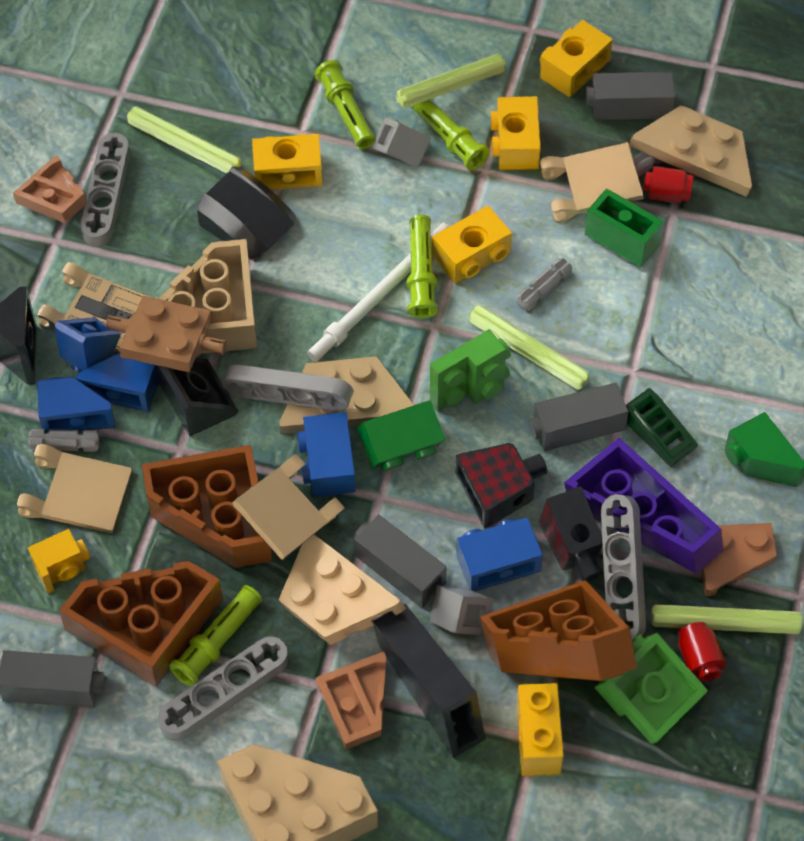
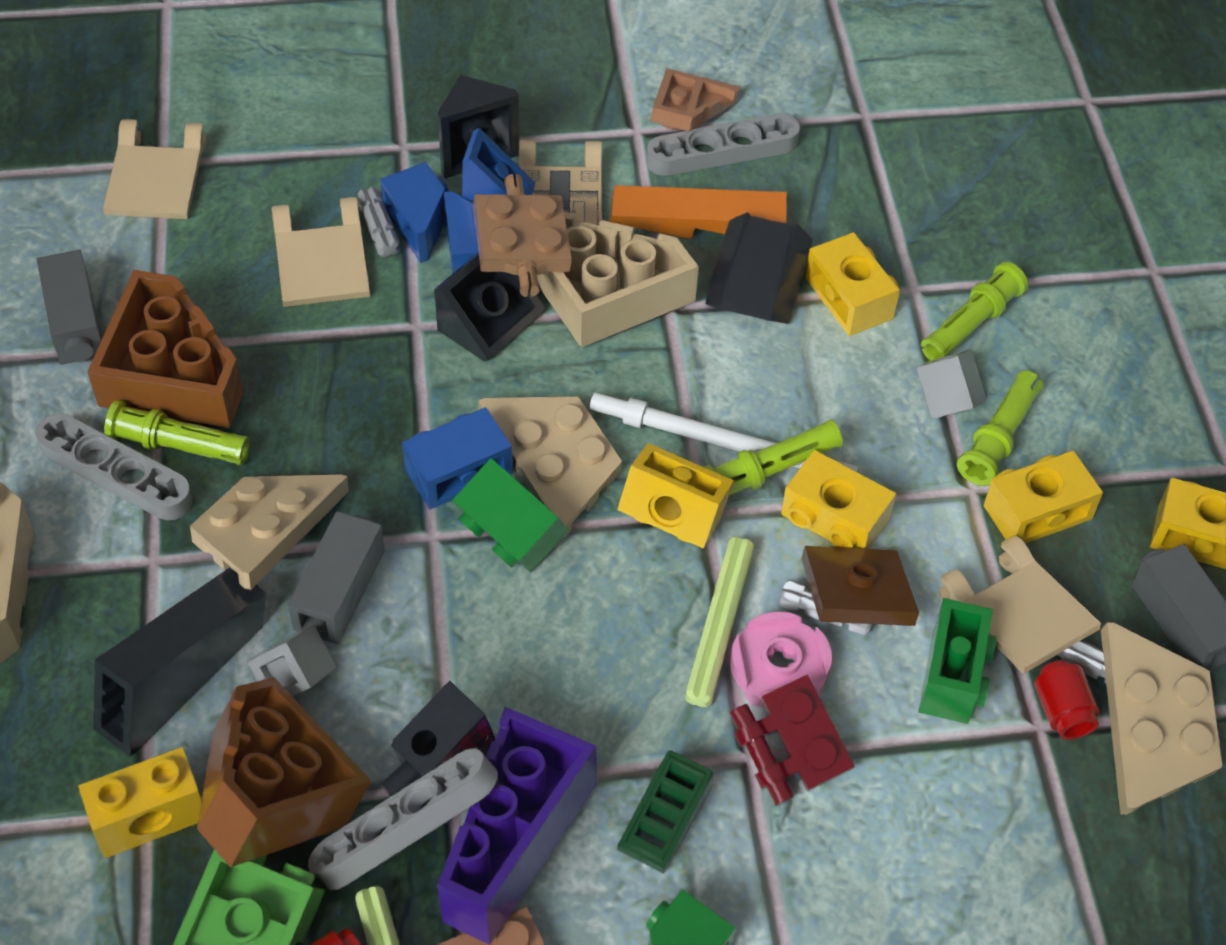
camera: 65 degrees right, 5 degrees down
(58, 558) = (219, 262): yellow brick -> none
(167, 228) = (684, 209): none -> orange slope
(182, 140) = (829, 185): yellowish green axle -> none
(196, 501) = (338, 370): dark orange brick -> none
(282, 511) = (341, 426): tan flag -> none
(288, 387) = (524, 384): light grey beam -> none
(356, 699) = (128, 595): nougat wing -> none
(429, 331) = (675, 495): none -> yellow brick
(450, 81) = (1074, 400): yellowish green axle -> none
(470, 370) = (633, 550): bright green plate -> none
(498, 480) = (494, 645): black torso -> none
(499, 554) = (384, 675): blue brick -> none
(543, 257) = (859, 586): none -> reddish brown plate
(573, 341) = (784, 634): none -> bright pink plate
(579, 416) = (633, 705): dark grey brick -> none
(639, 329) = (806, 734): none -> dark red plate

